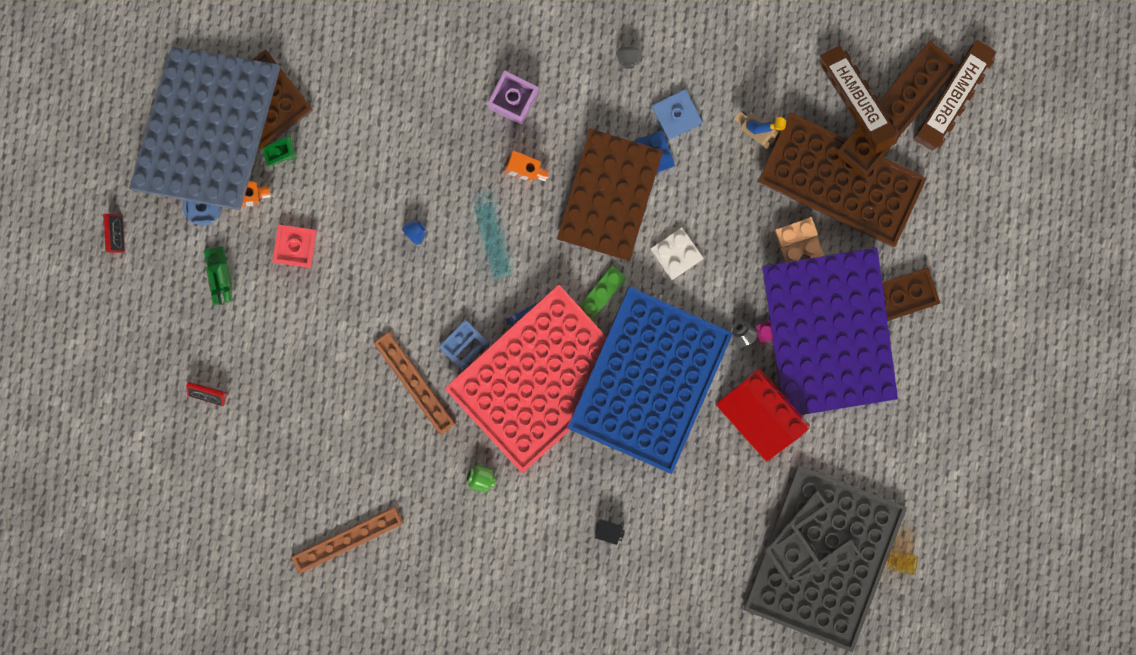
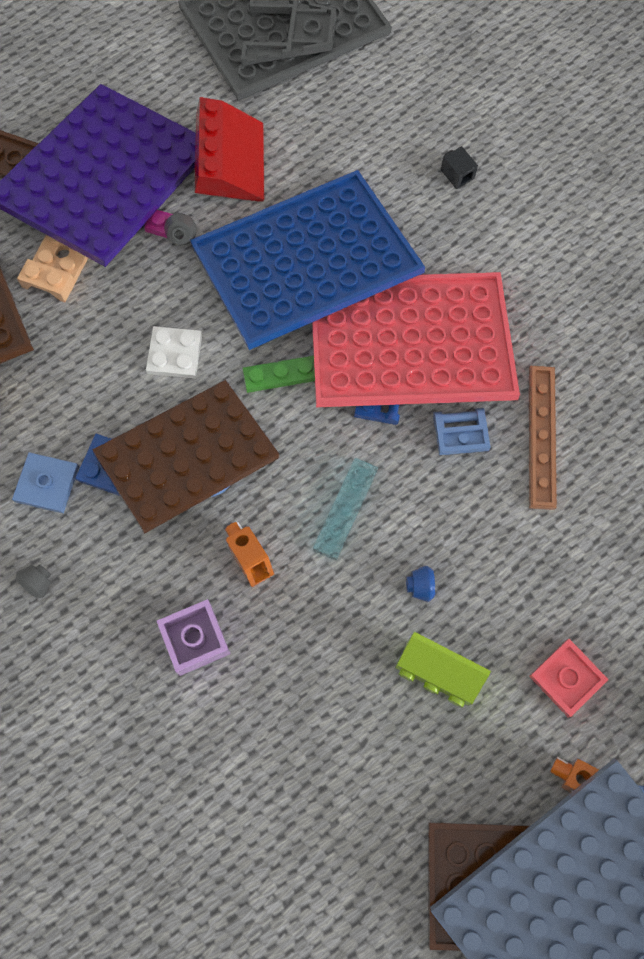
camera: 140 degrees left, 15 degrees down
(279, 151) = (508, 801): green slope -> none
(366, 190) = (441, 670): none -> lime slope
(480, 478) = (546, 297): bright green head -> none

